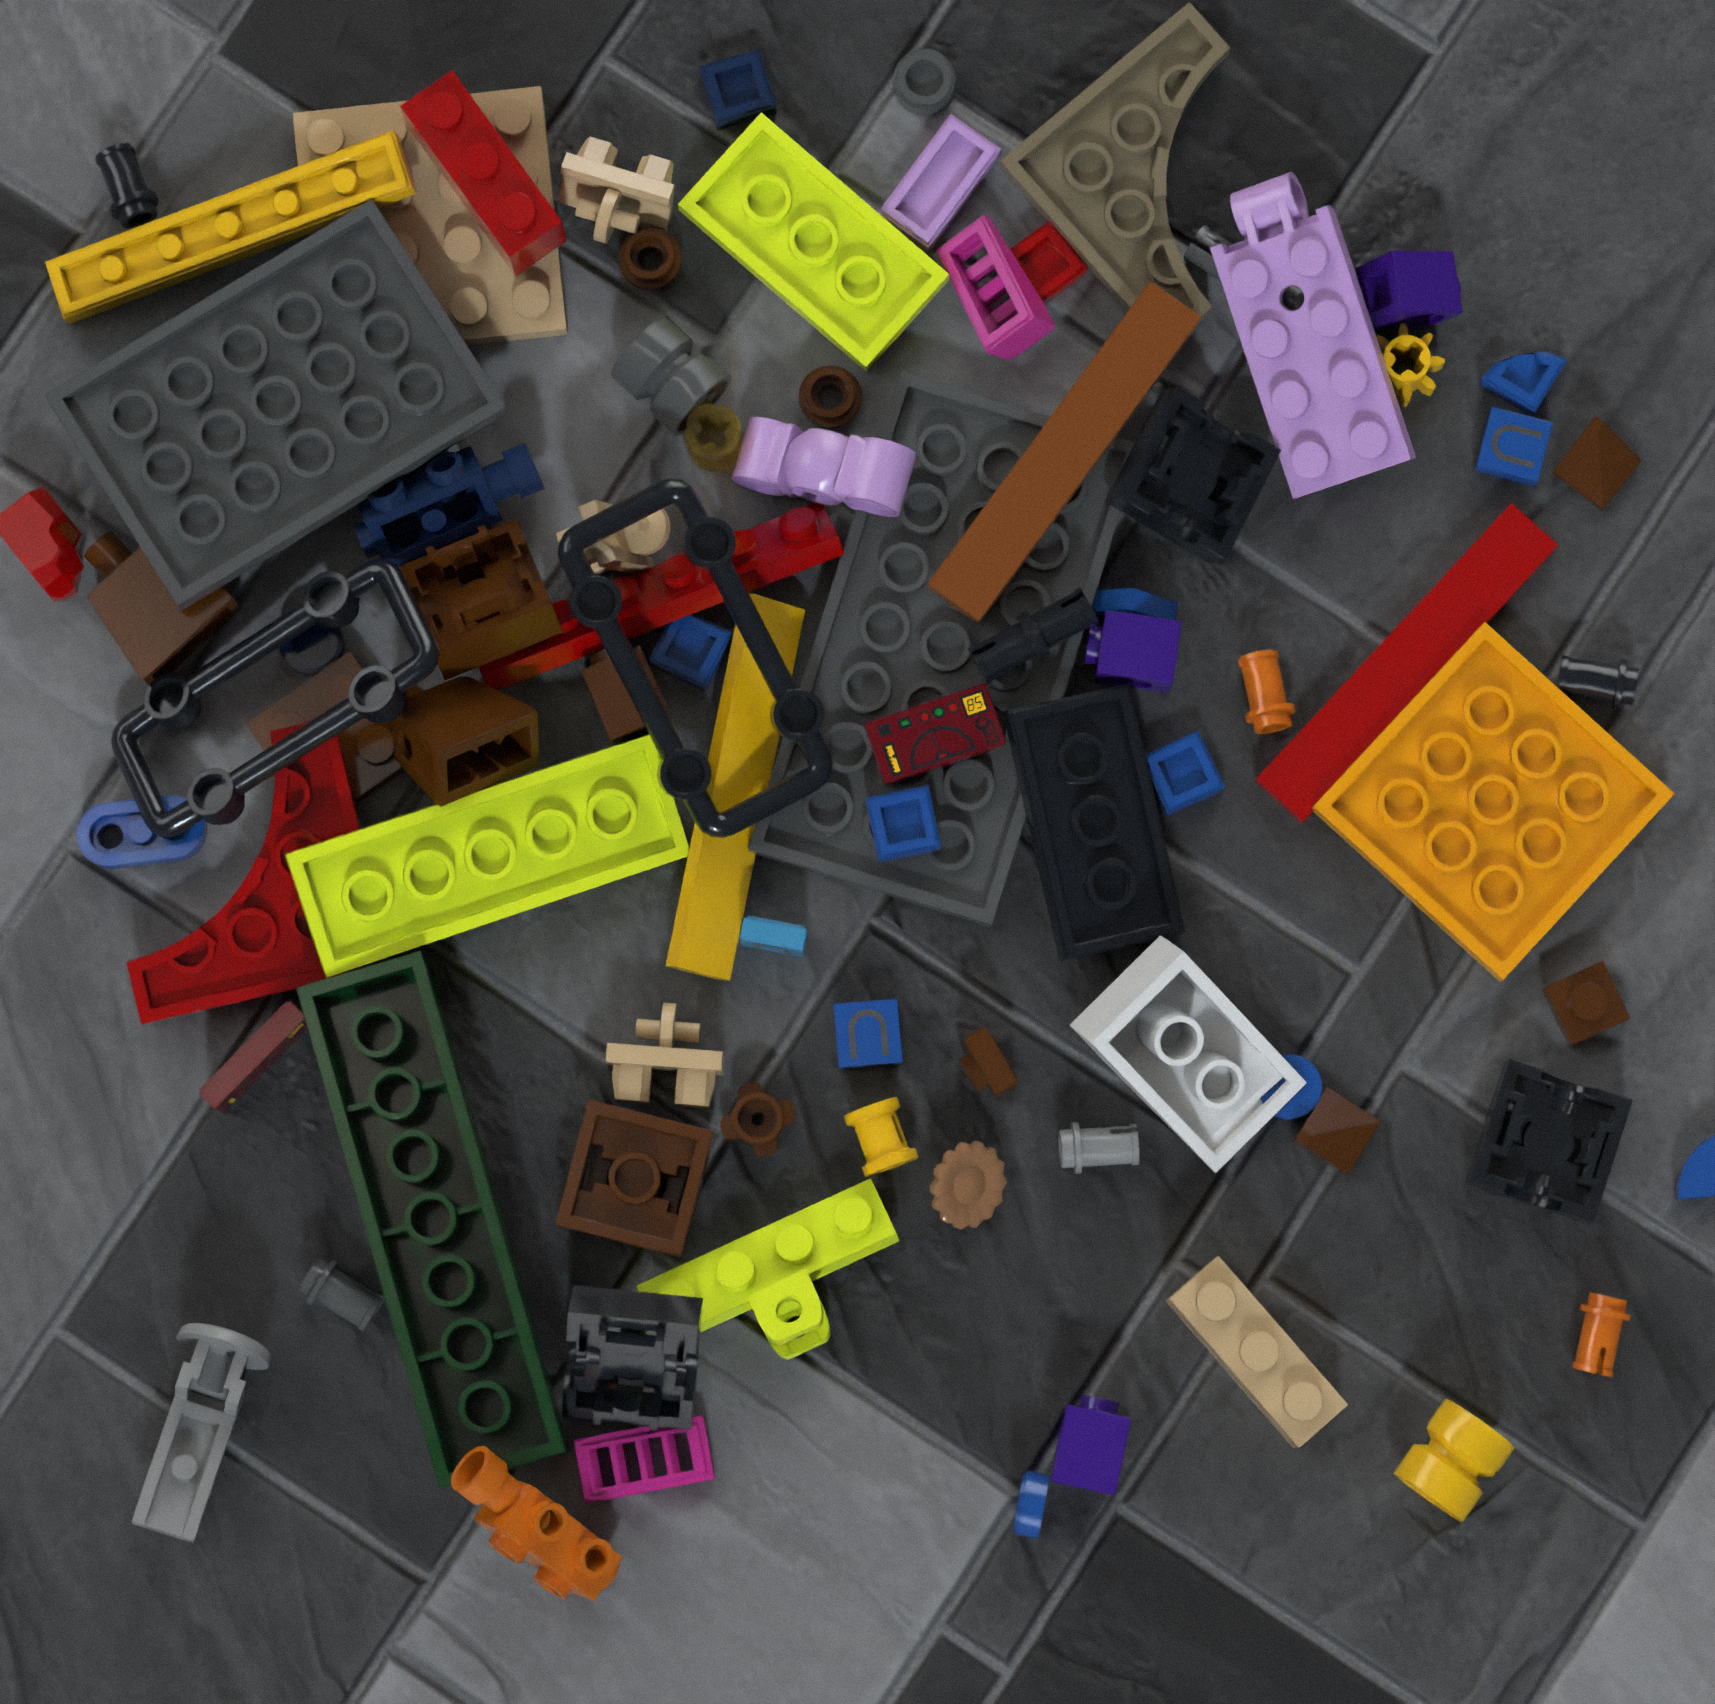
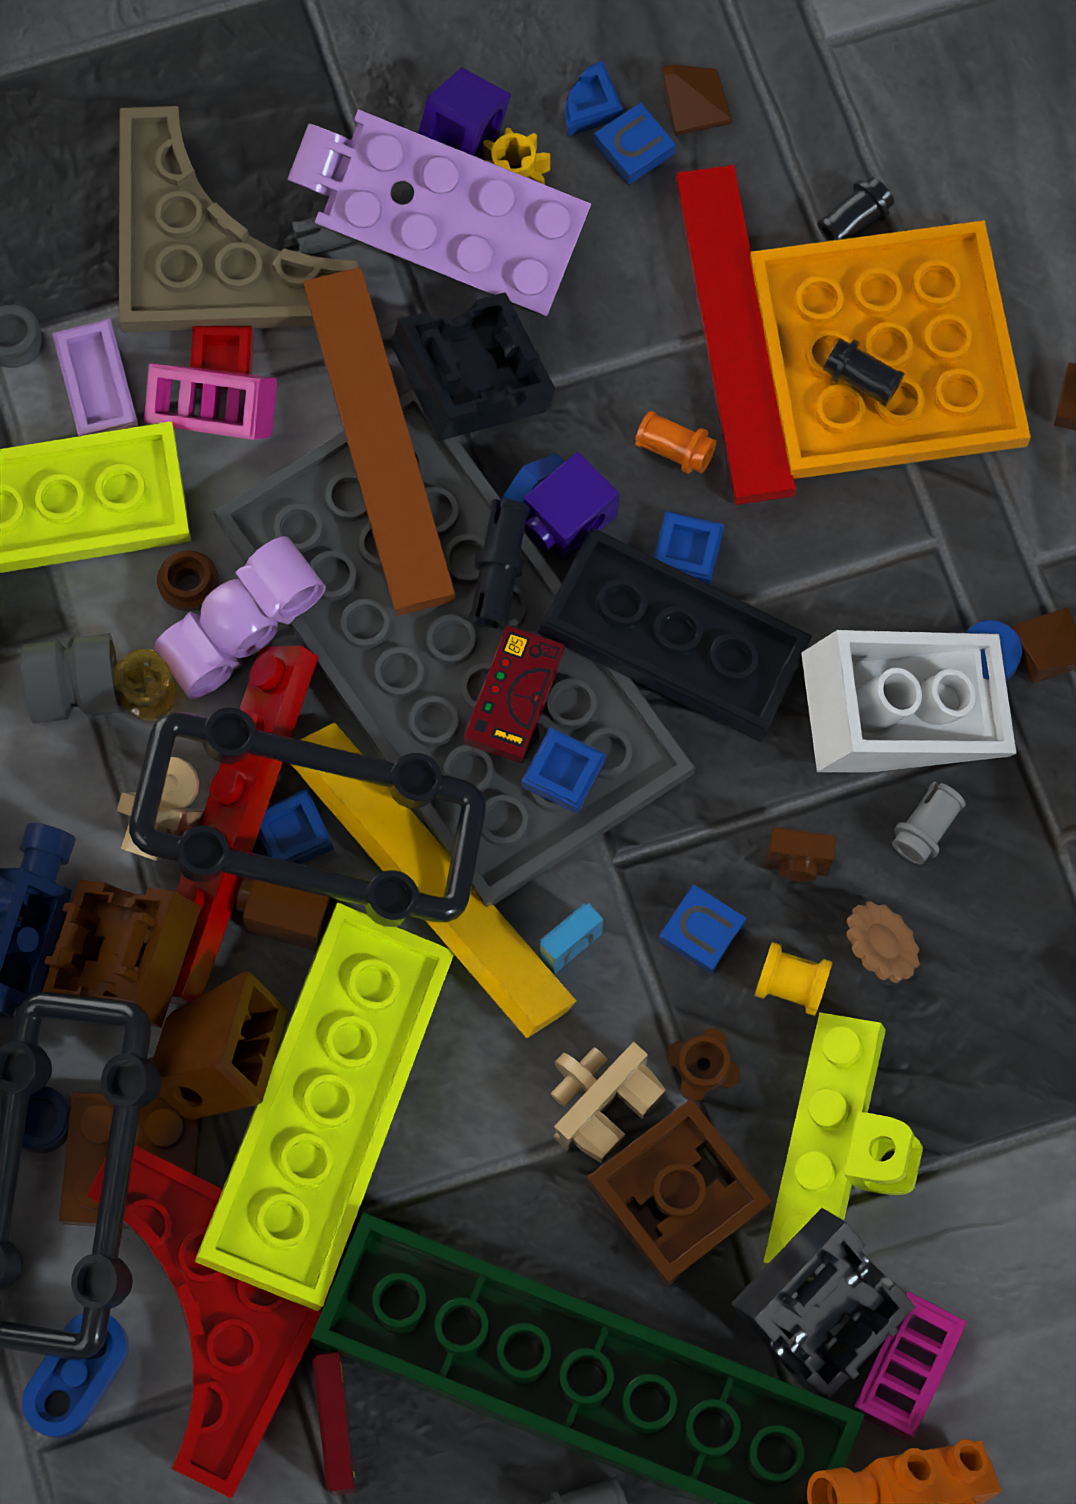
camera: 55 degrees left, 10 degrees down
(1443, 798) = (862, 371): none -> black pin

